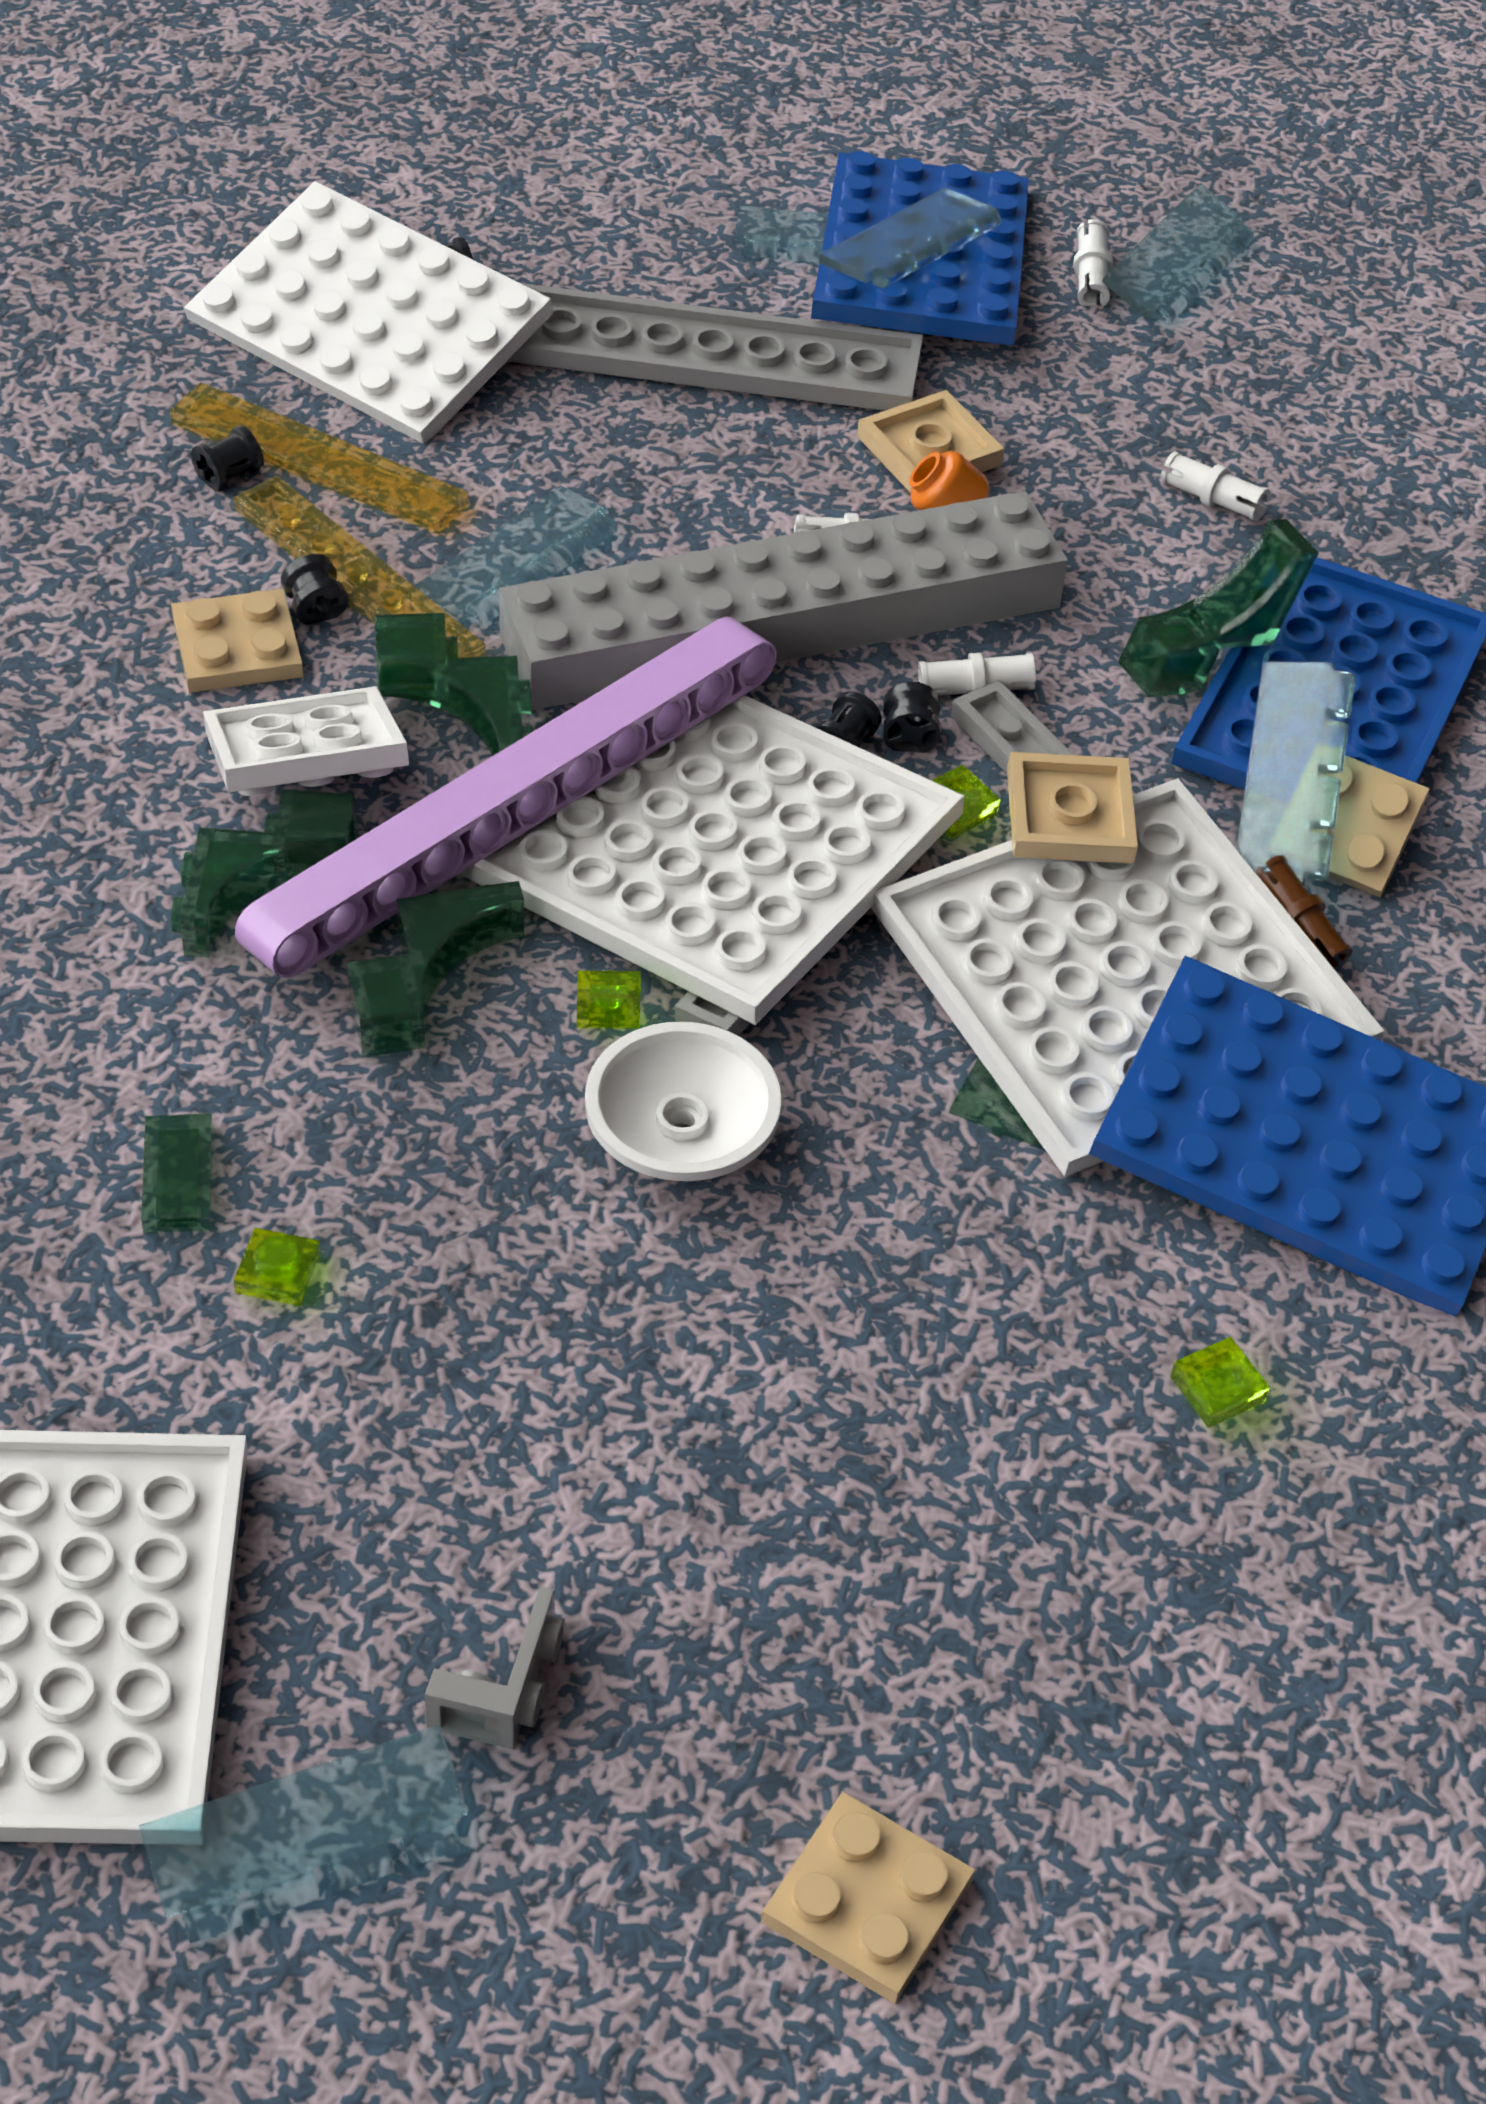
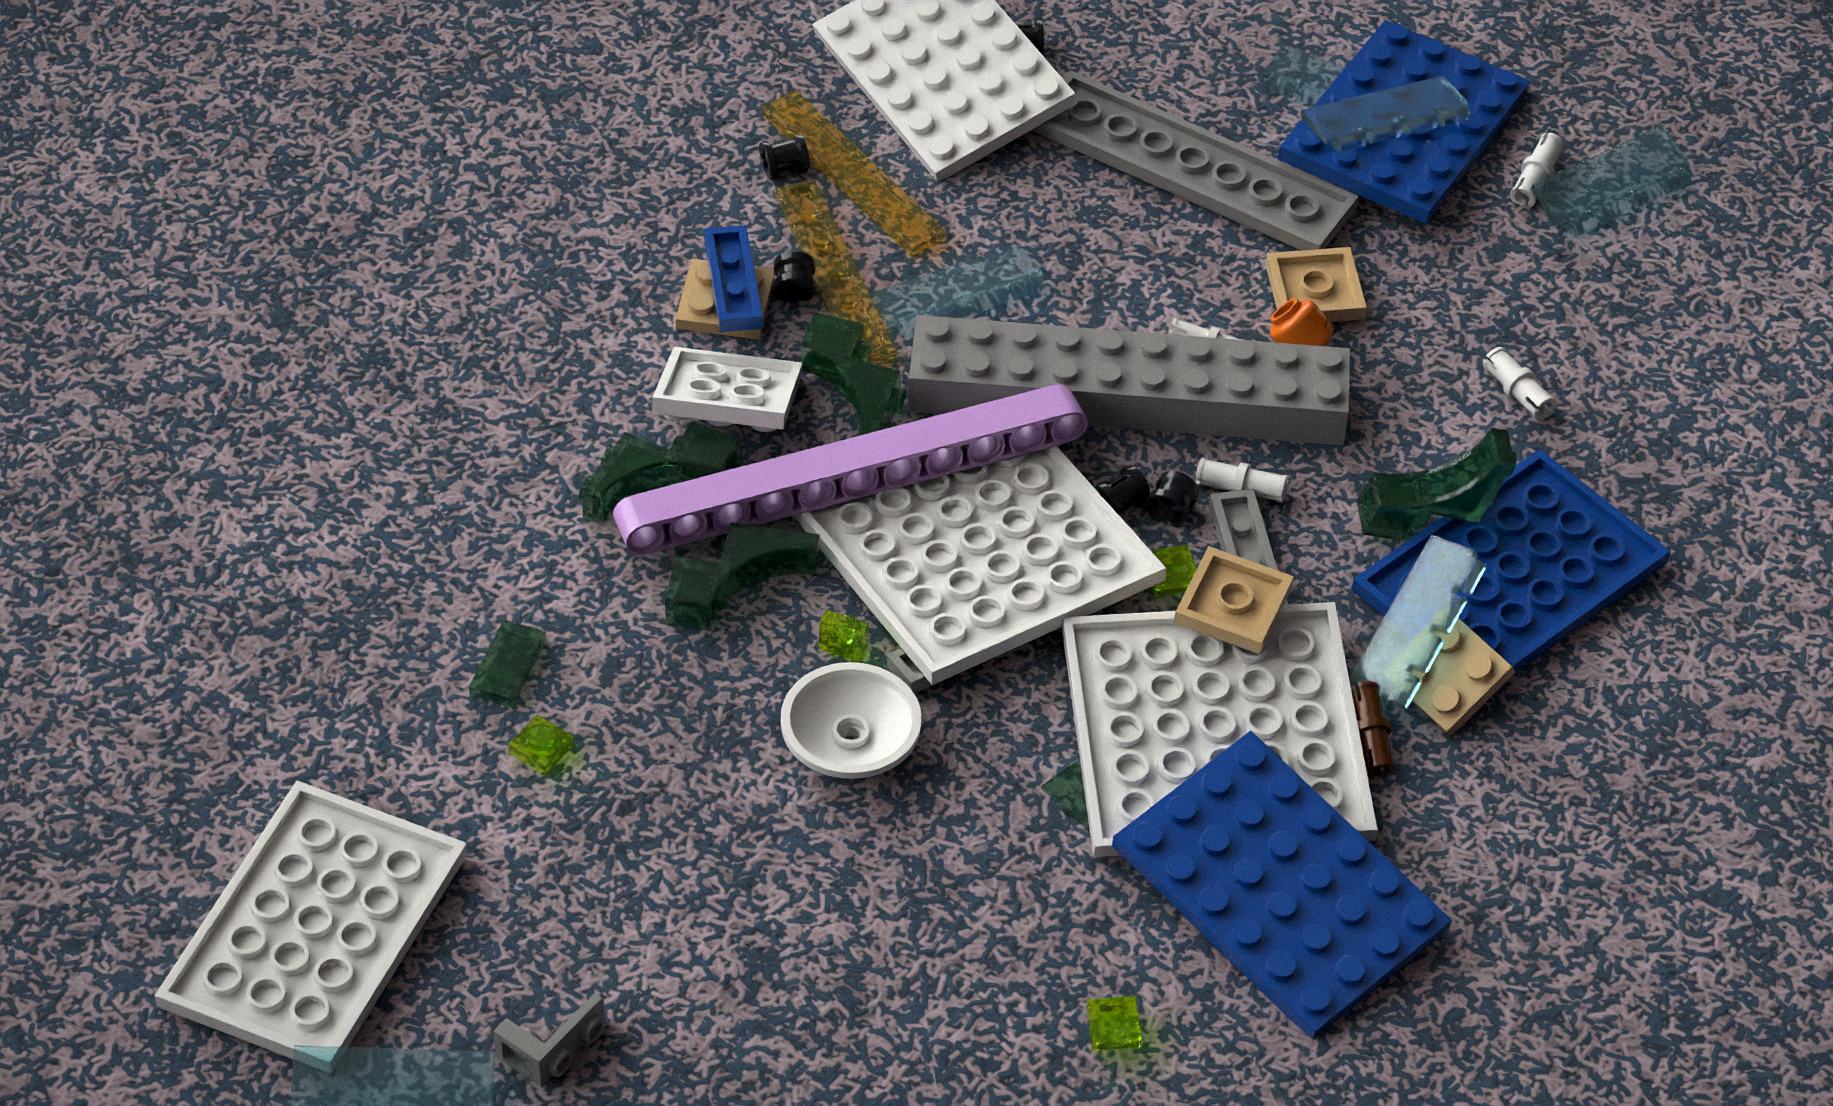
camera: 25 degrees right, 0 degrees up
(245, 607) = (733, 278): none -> blue plate

